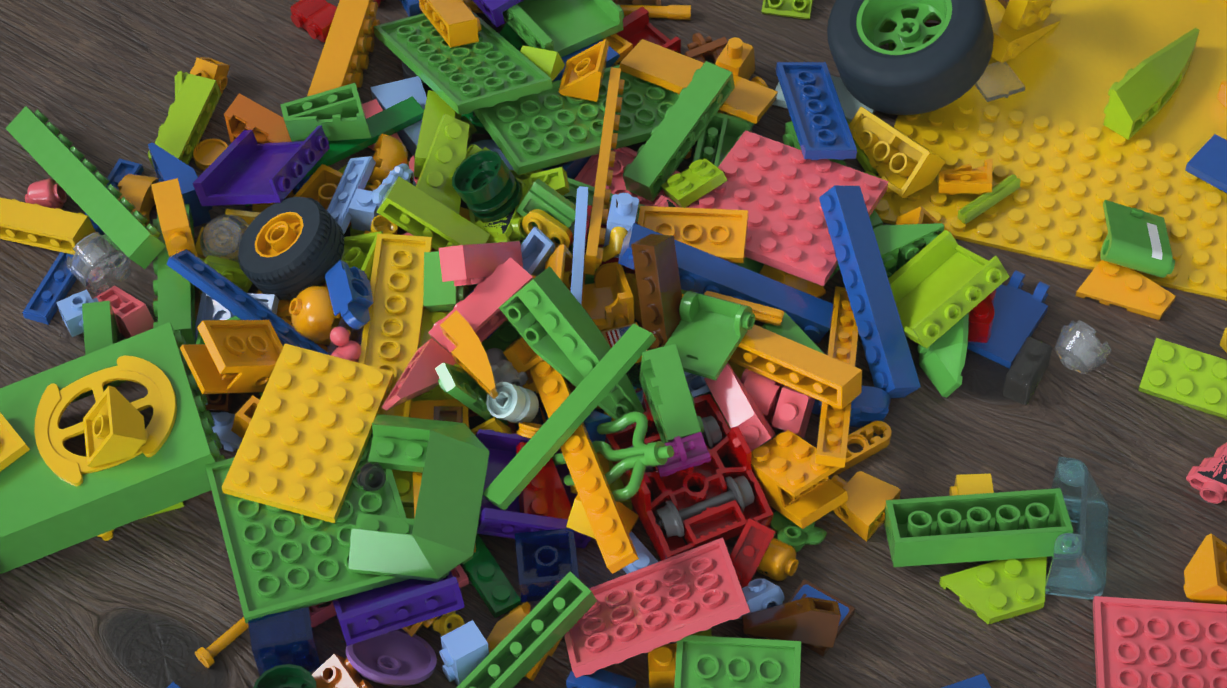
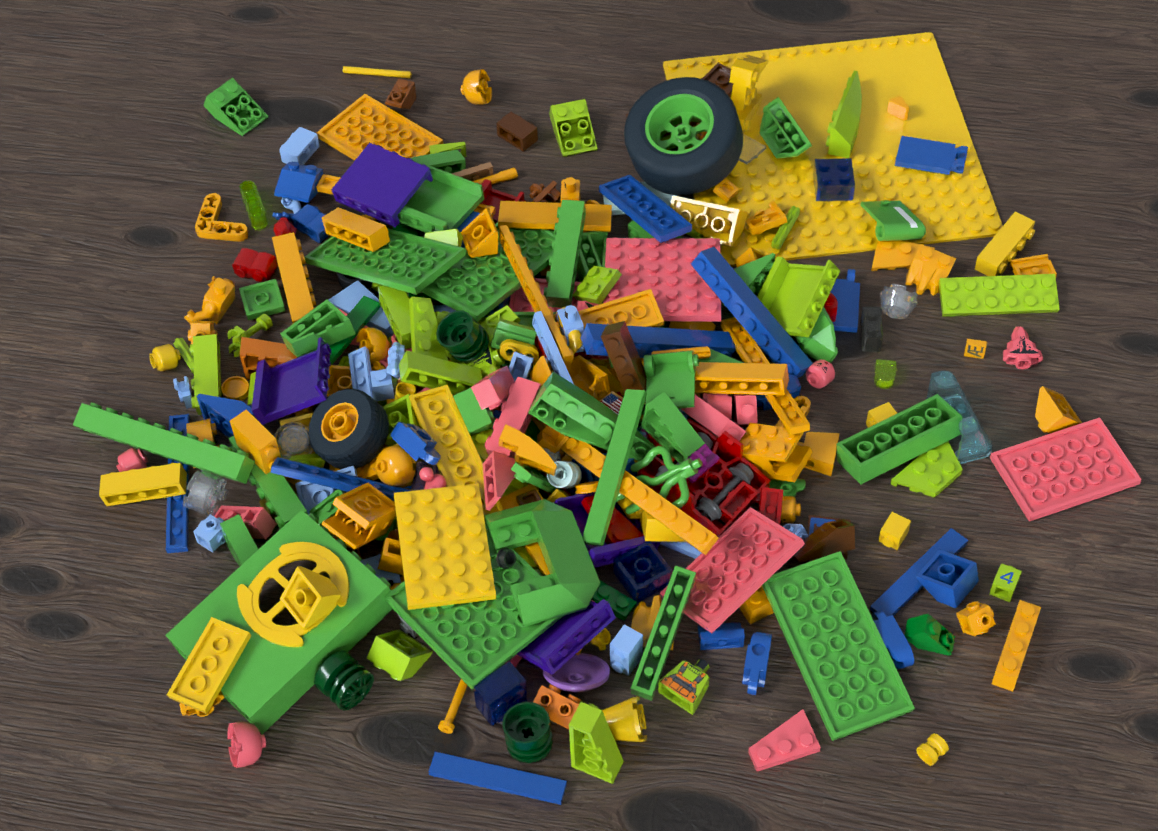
camera: 25 degrees left, 0 degrees up
(115, 549) = (343, 680): none -> dark green wheel
(148, 130) = (184, 391): none -> light blue plate
(153, 88) = (164, 357): none -> yellow head
(196, 544) = (398, 654): none -> lime slope
(246, 42) = (215, 302): none -> light orange torso
(286, 88) = (263, 322): none -> lime bar
(297, 59) = (261, 299): none -> bright green plate
(903, 646) = (894, 531): none -> yellow brick
(925, 403) = (820, 374): none -> coral head
(937, 123) = (726, 190): none -> light orange plate
(1013, 435) = (884, 373): none -> clear neon green piece
(1056, 73) = (782, 131): none -> bright green wedge
(1086, 159) = (833, 179): none -> clear blue brick
(1151, 317) = (928, 268): none -> light orange plate
(1154, 449) = (975, 348): none -> light orange tile

